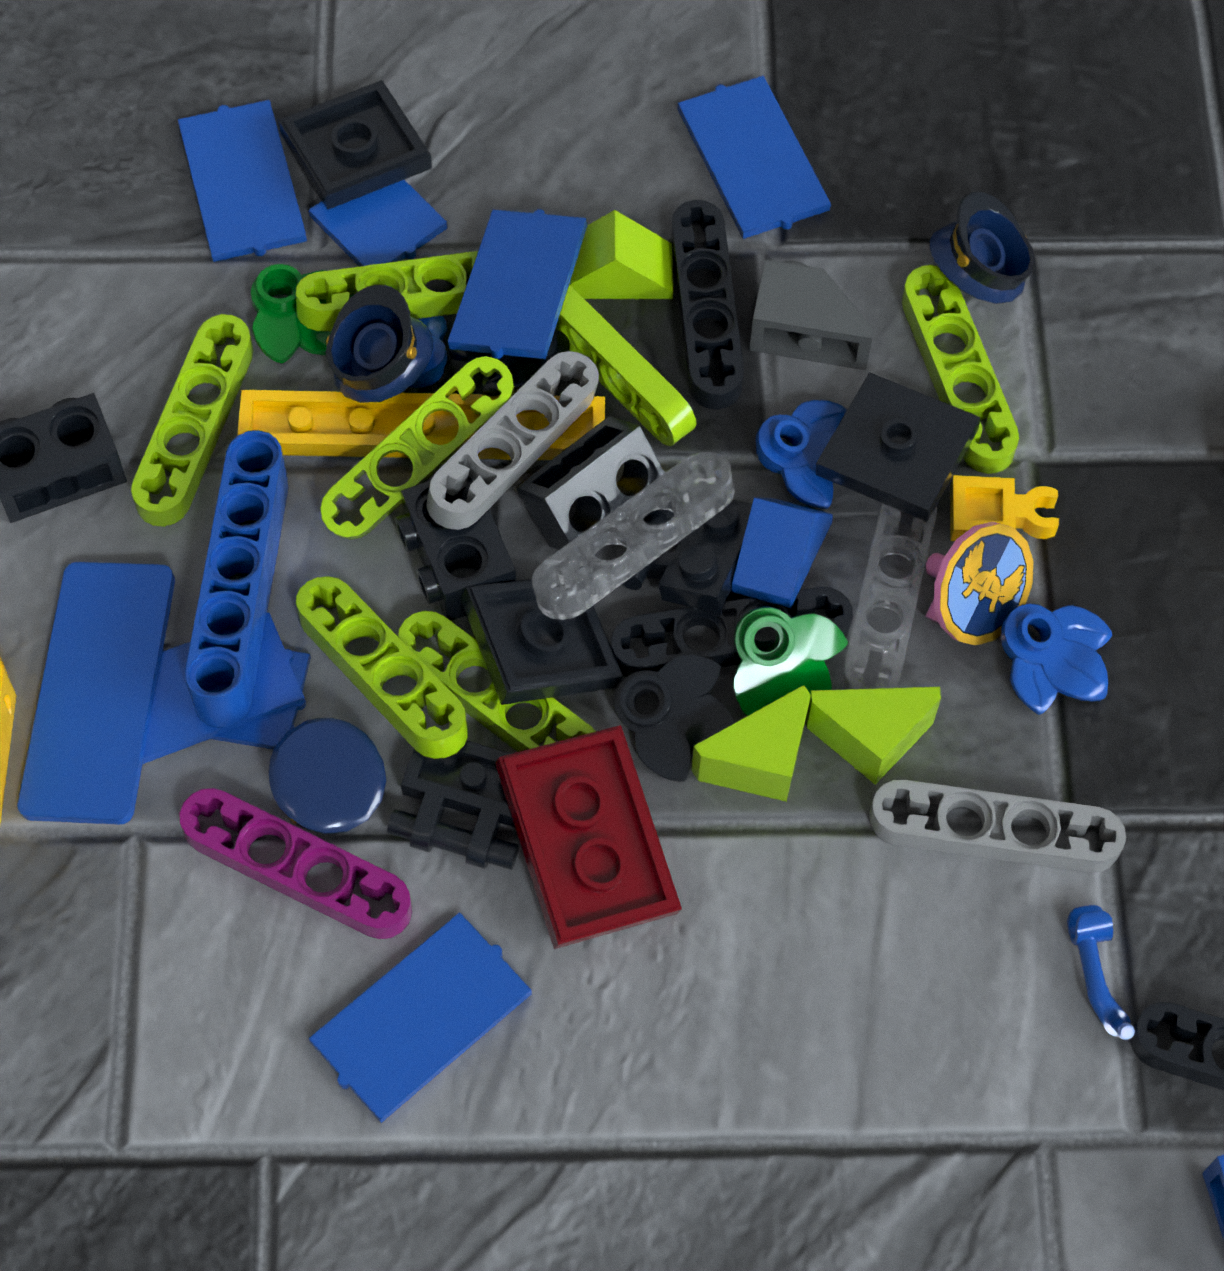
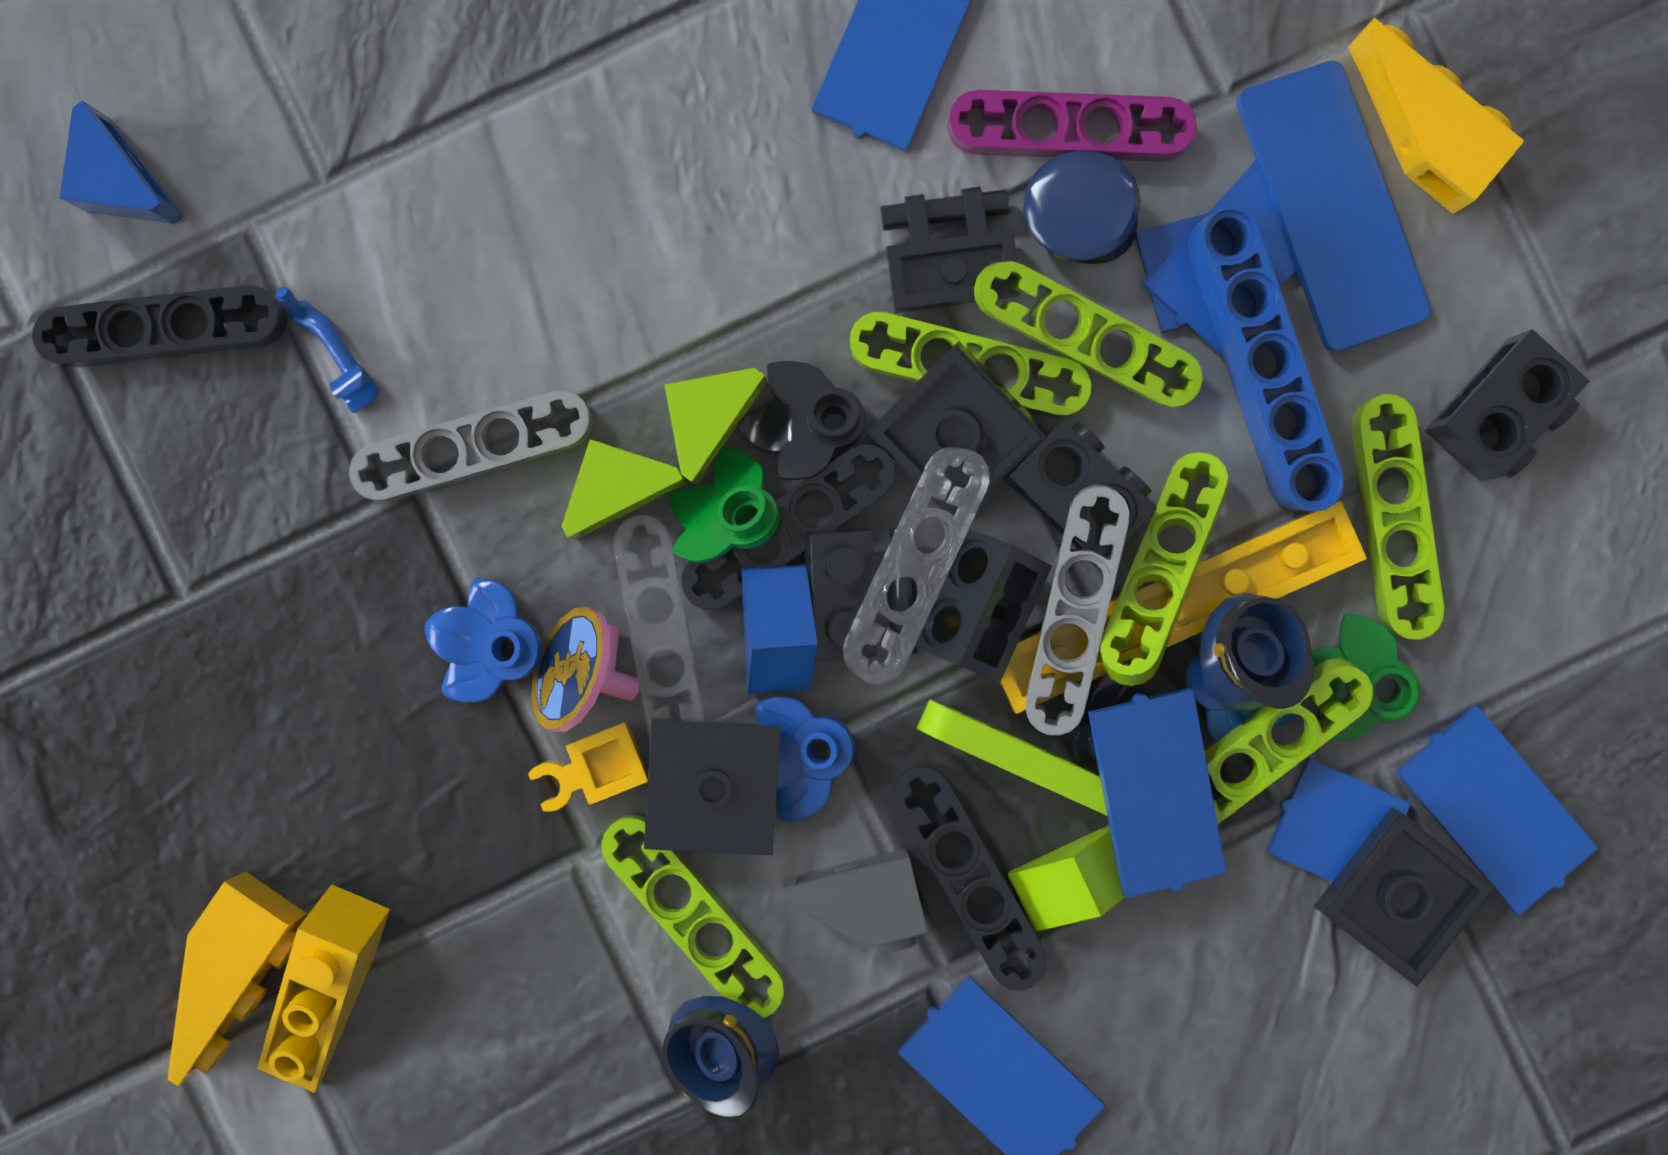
camera: 155 degrees right, 25 degrees up
(587, 836) = (825, 259): dark red tile -> none

